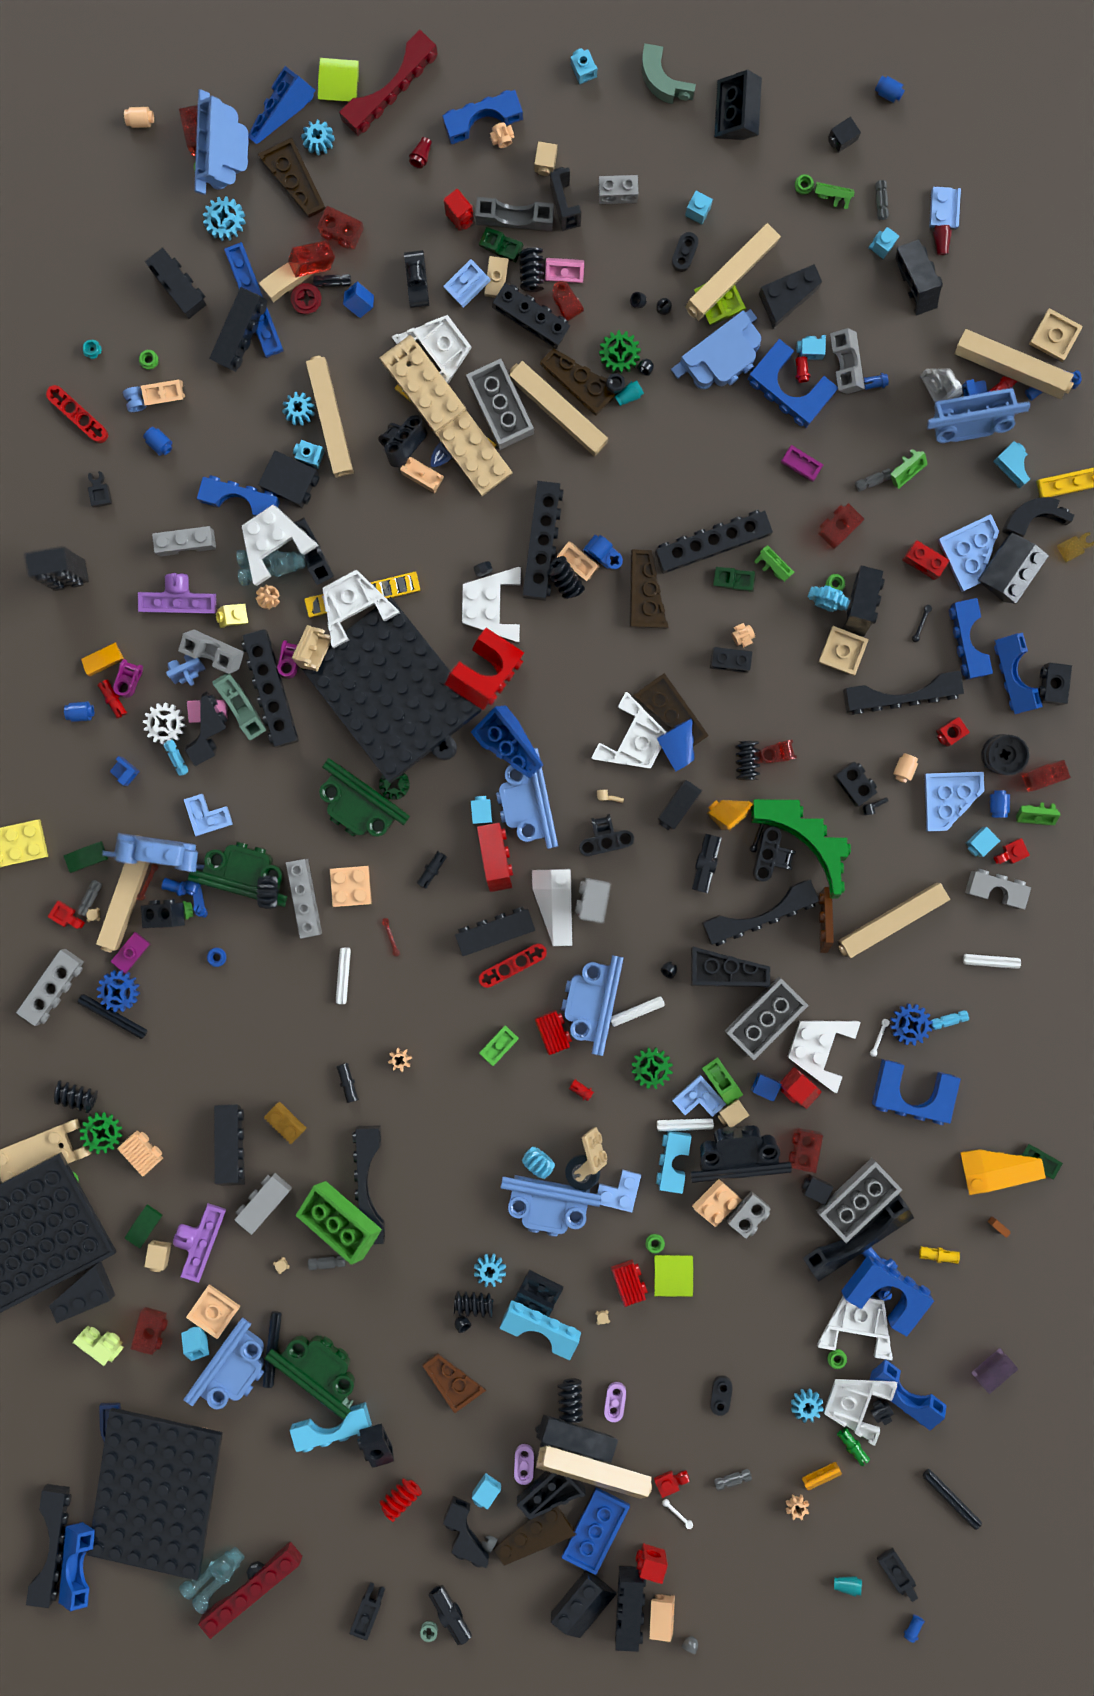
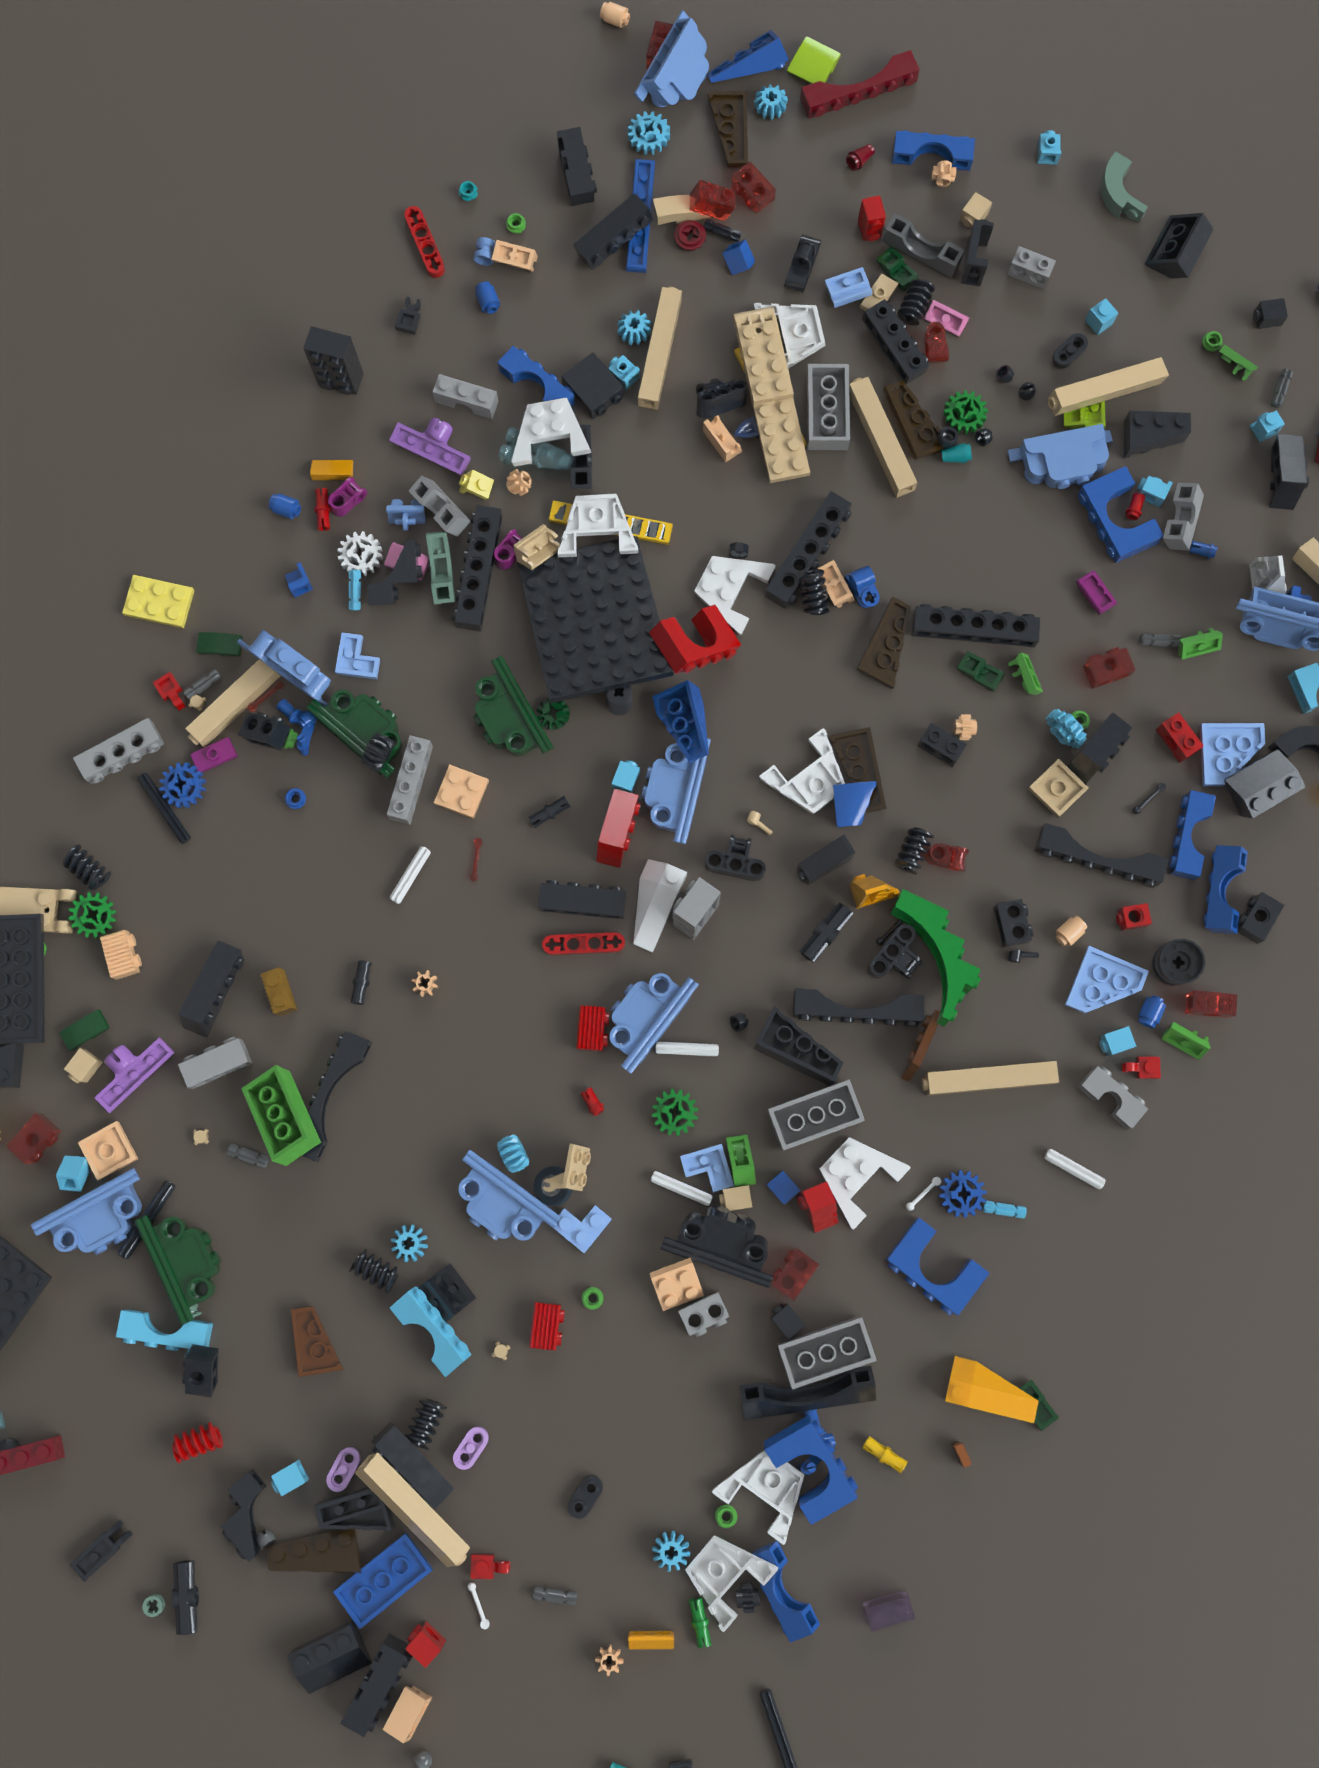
camera: 25 degrees right, 10 degrees down
(462, 1324) = (353, 1287): black hinge -> none
(498, 1045) = (530, 1016): bright green plate -> none
(673, 1276) = (595, 1342): lime slope -> none
(675, 1144) = (661, 1203): medium azure arch -> none

